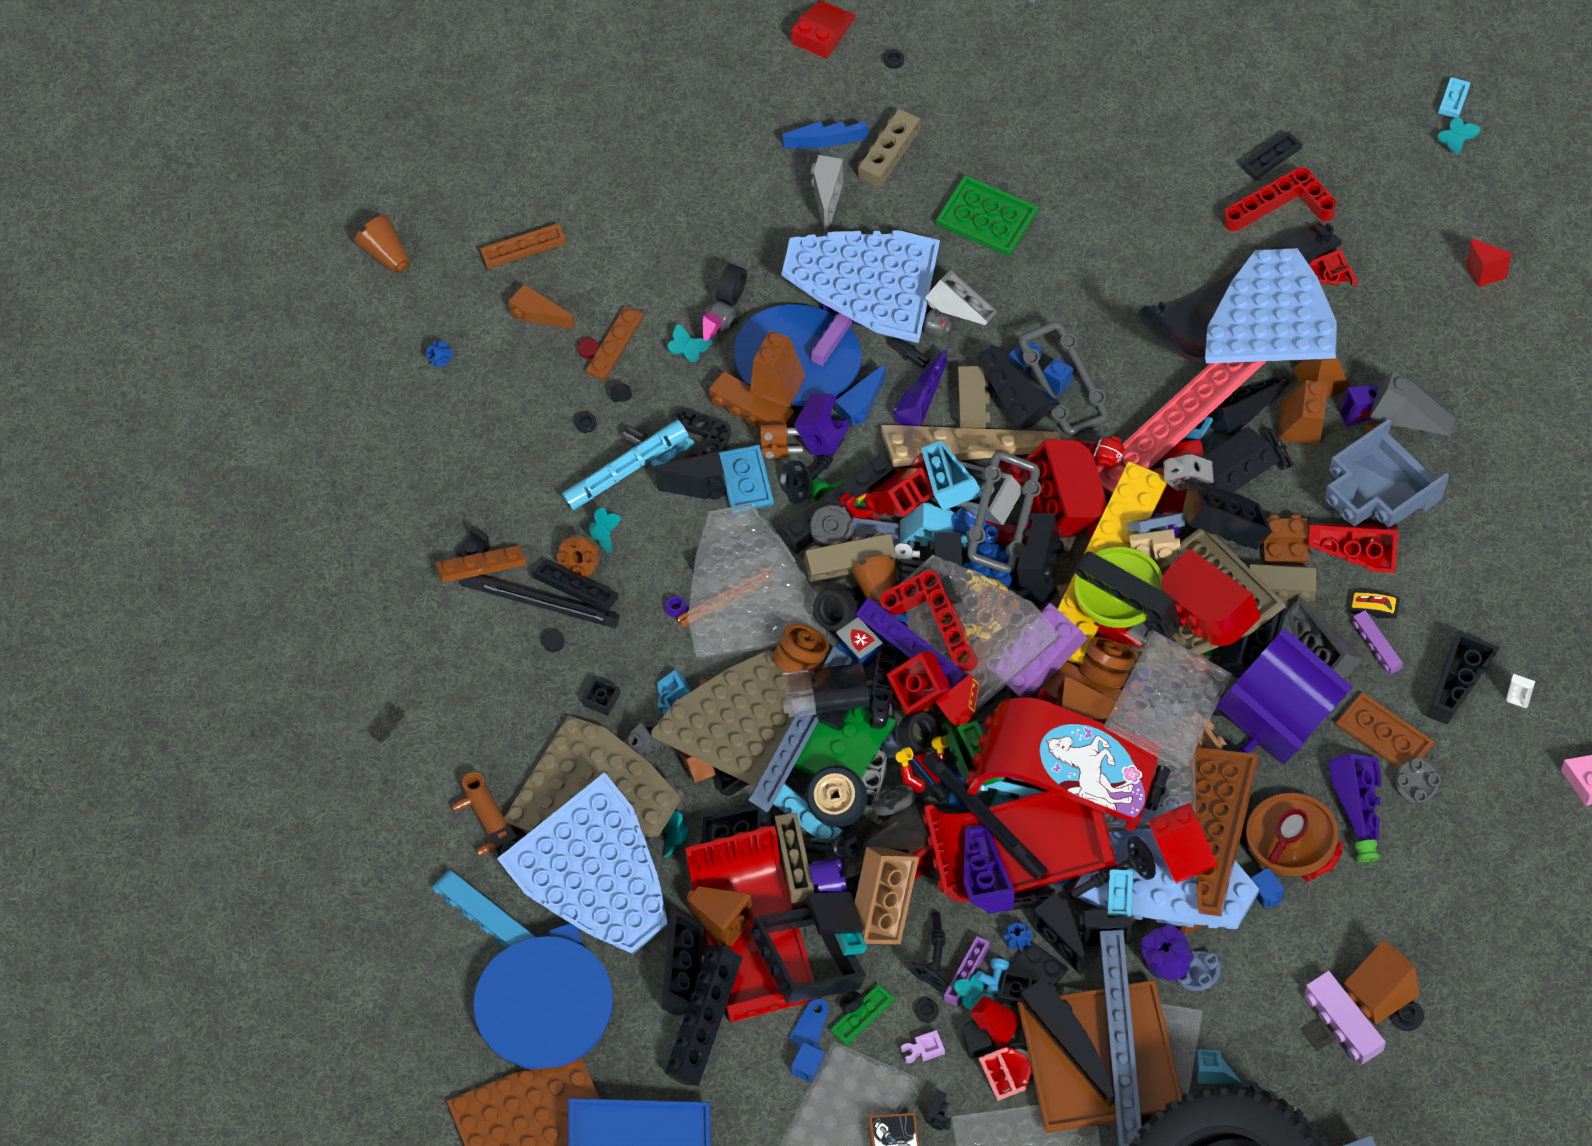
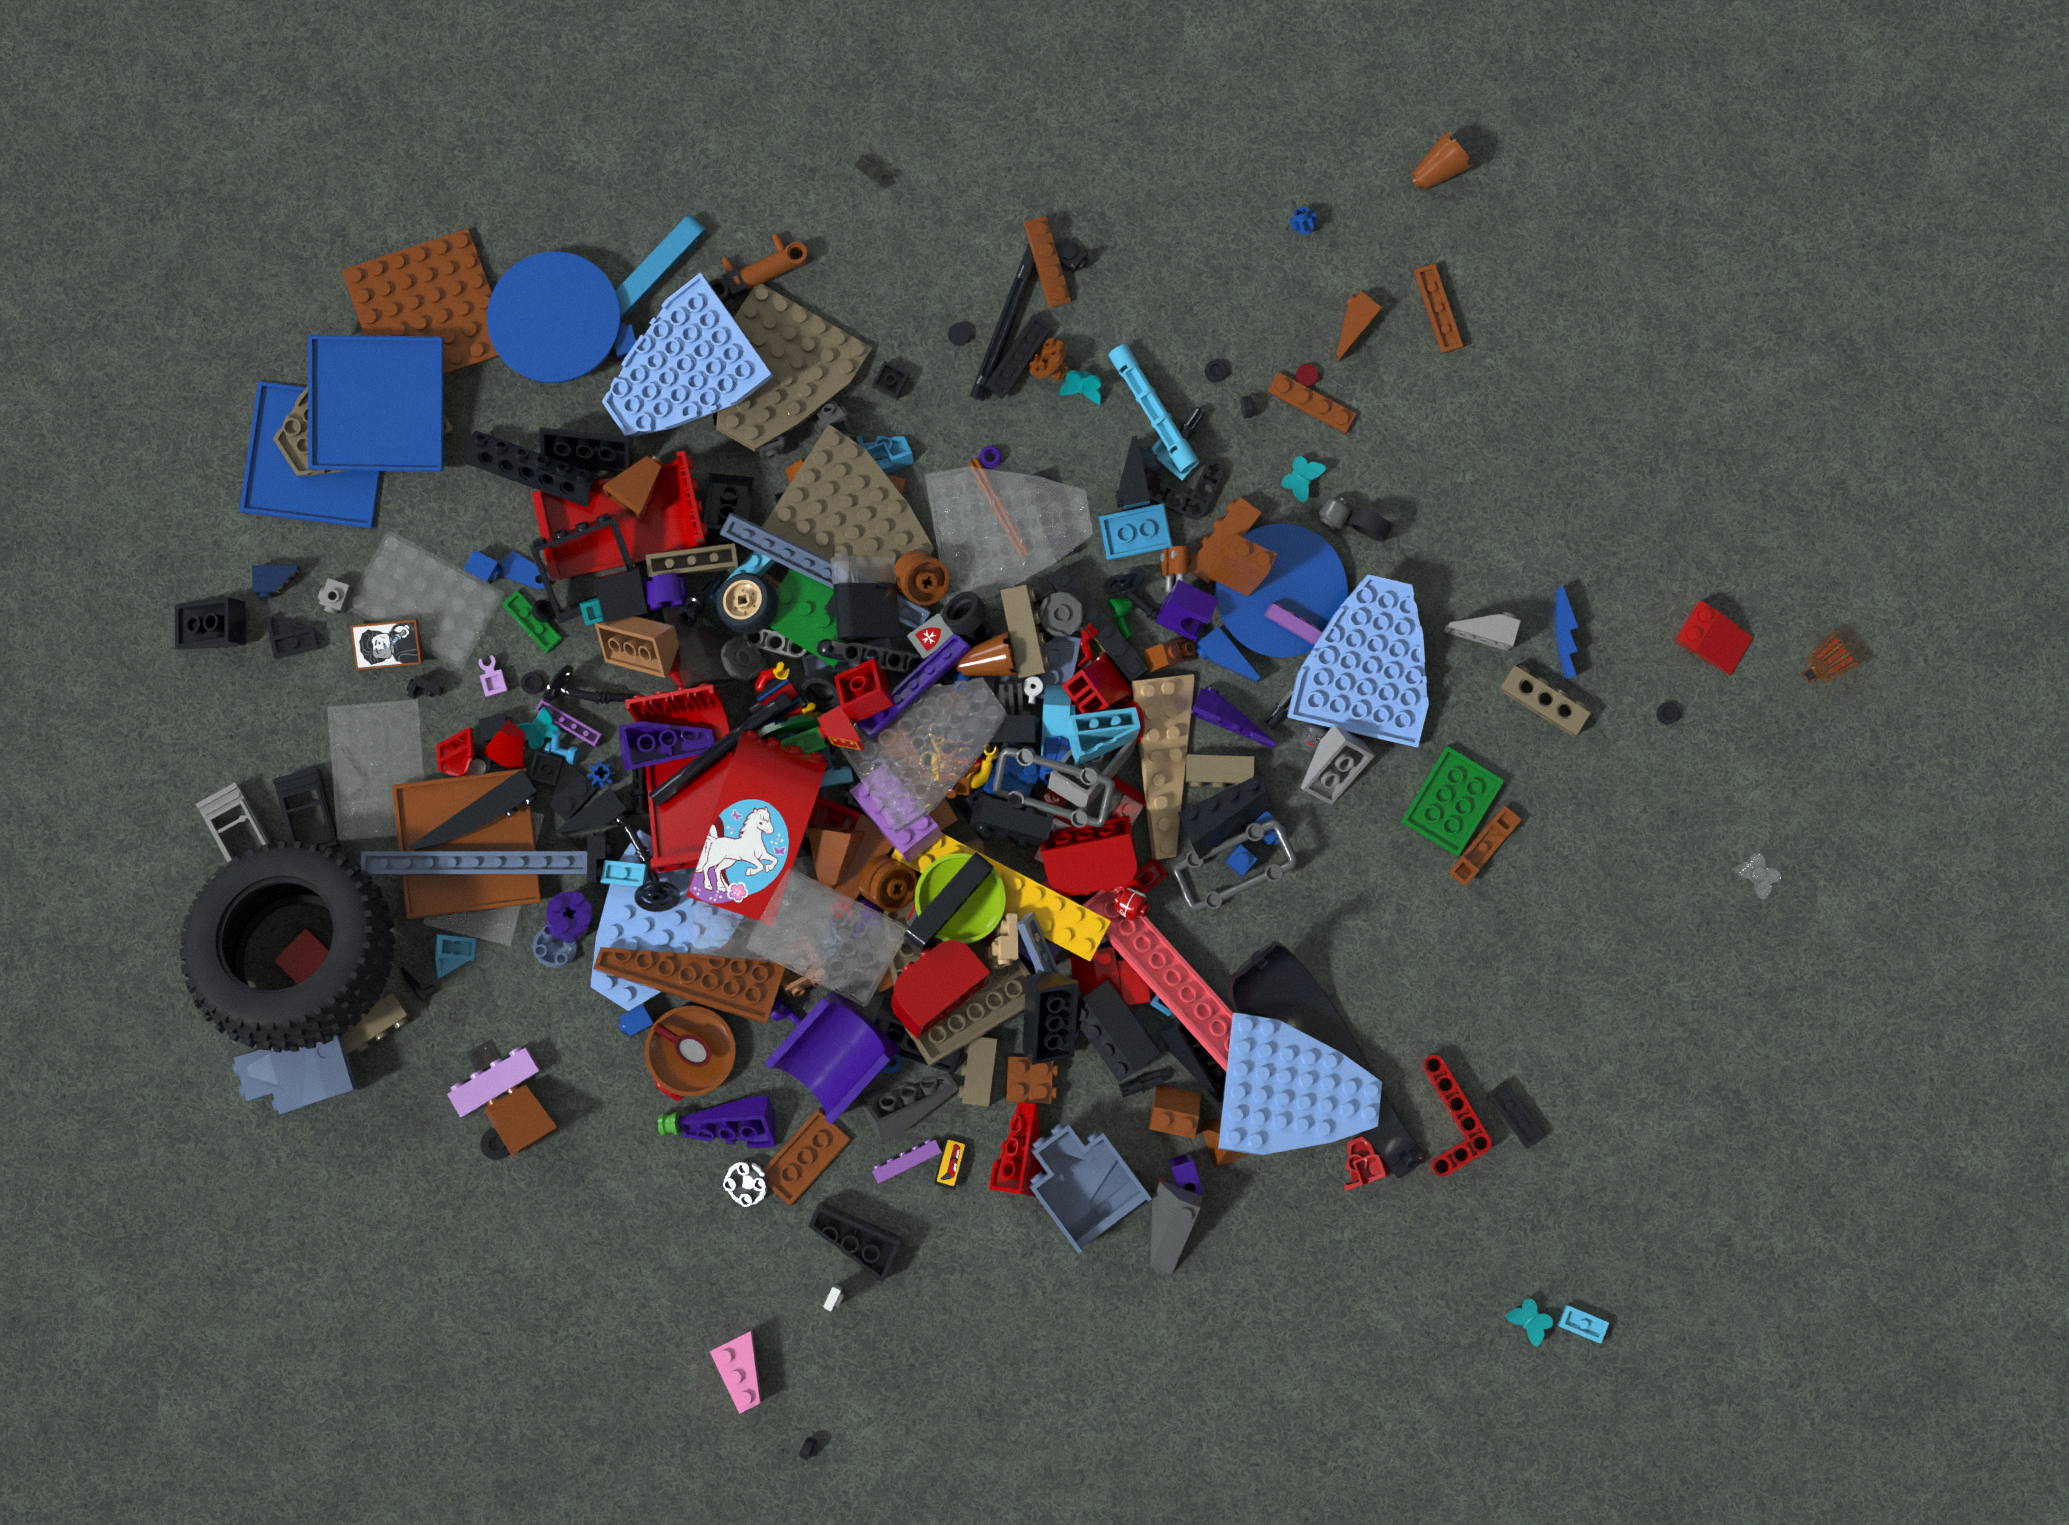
camera: 85 degrees right, 25 degrees up
(675, 833) = (731, 449): teal animal -> none
(710, 325) = (1318, 499): dark pink slope -> none
(863, 443) = (1170, 654): none -> dark orange slope
(941, 613) = (934, 713): red beam -> none
(951, 589) = (957, 726): black tile -> none
(1009, 180) = (1484, 846): none -> dark orange slope
(1157, 787) = (731, 918): black pin -> none
(1181, 469) = (1095, 973): light grey torso -> none
(1183, 843) = (662, 937): red slope -> none
(1487, 262) = (1353, 1329): red slope -> none

